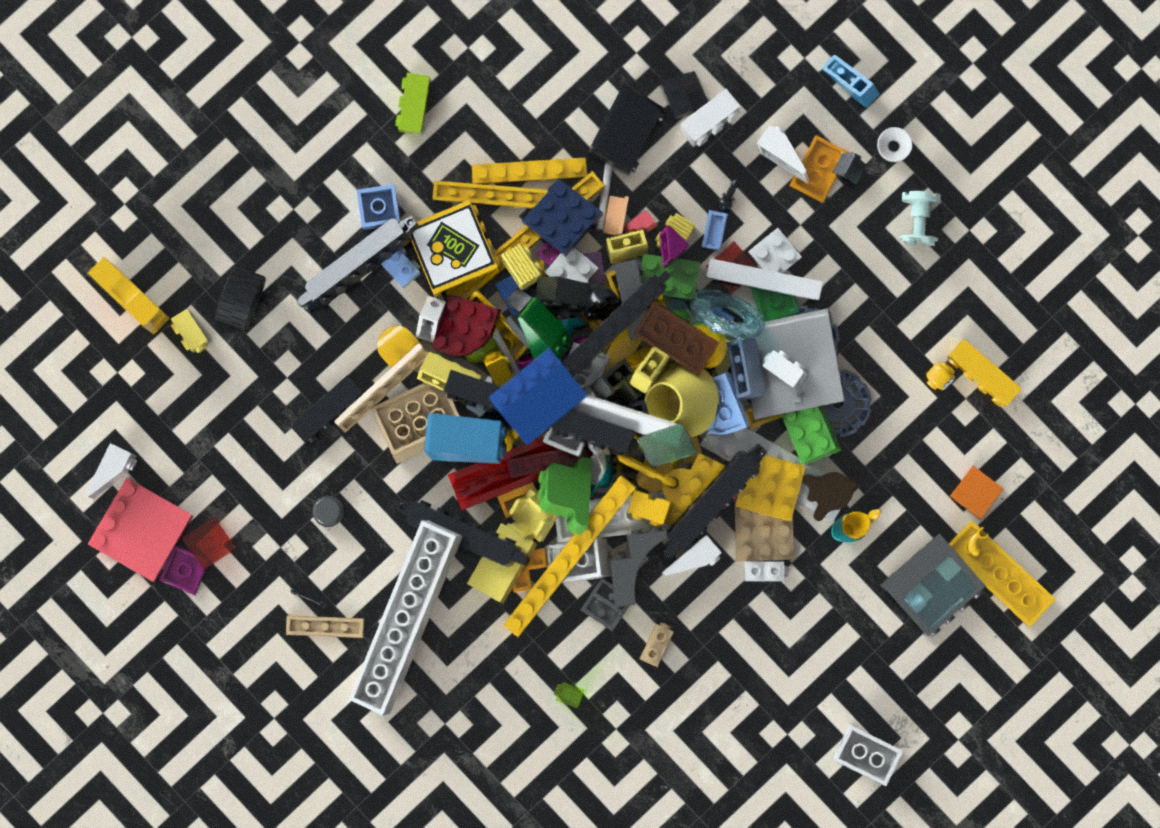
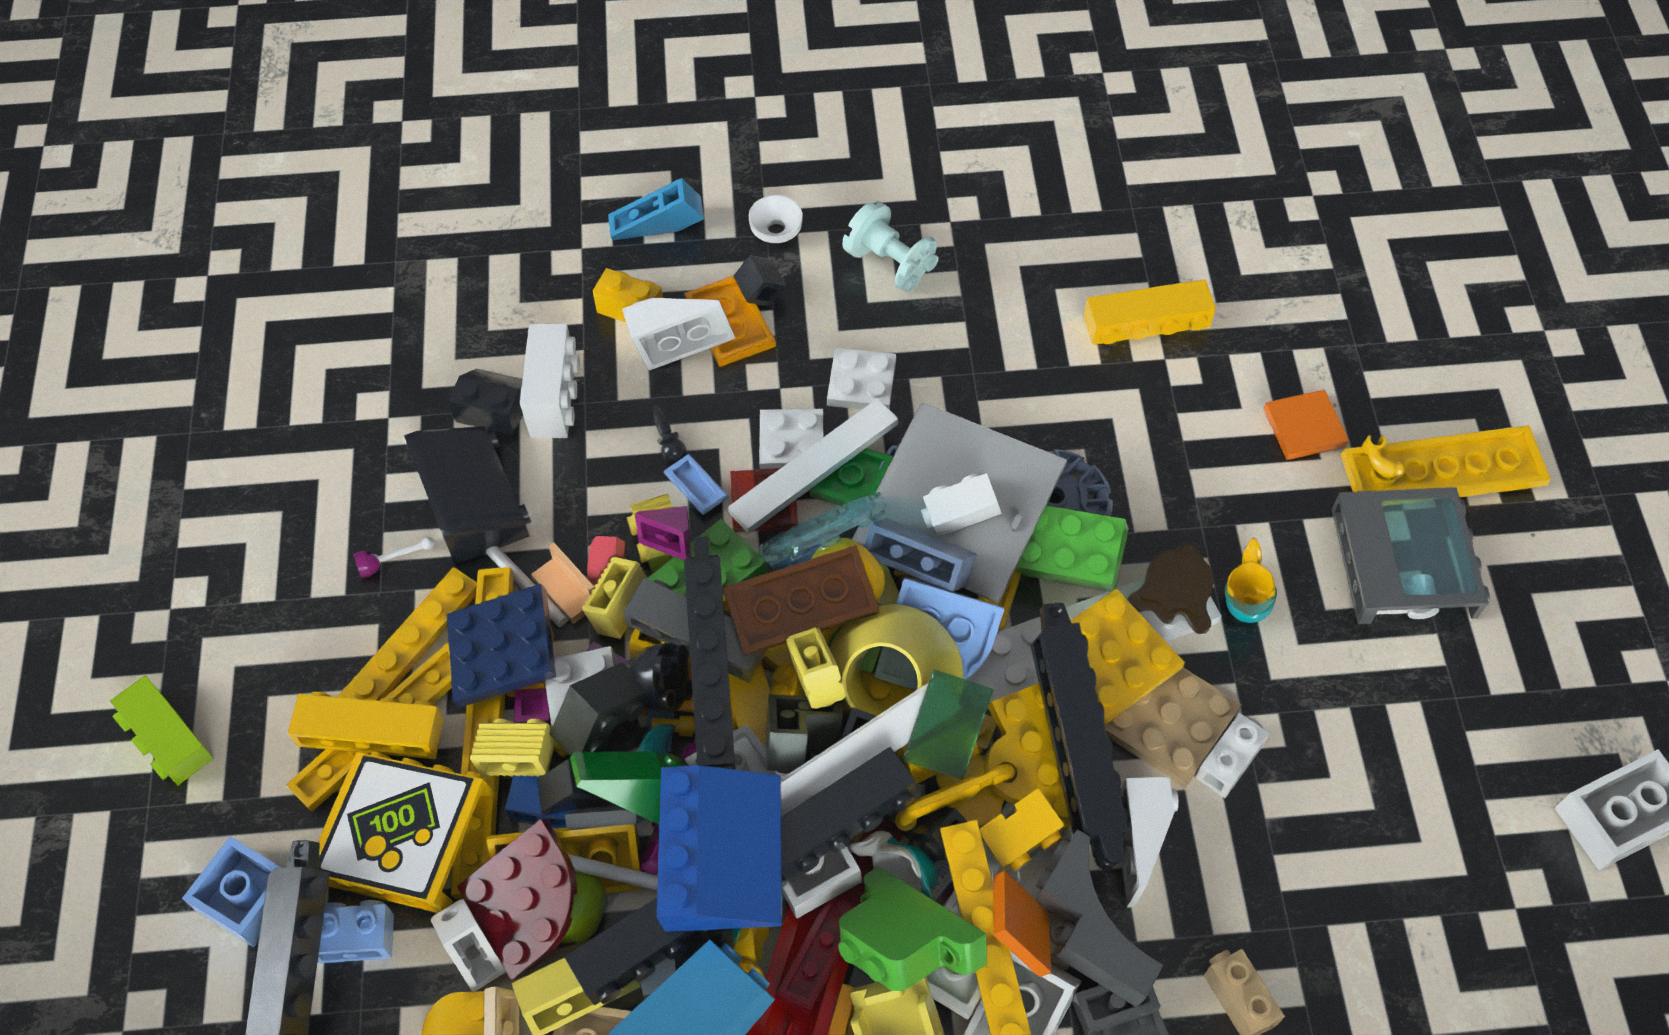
camera: 50 degrees left, 25 degrees down
(483, 194) = (366, 725): none -> yellow brick
(498, 368) = (622, 894): yellow brick -> none
(557, 117) = (369, 562): none -> hinge
(608, 536) = (1021, 924): none -> orange tile
(788, 112) = (619, 290): none -> yellow brick
(835, 261) = (860, 378): none -> white plate
(940, 376) = (1114, 359): yellow head -> none

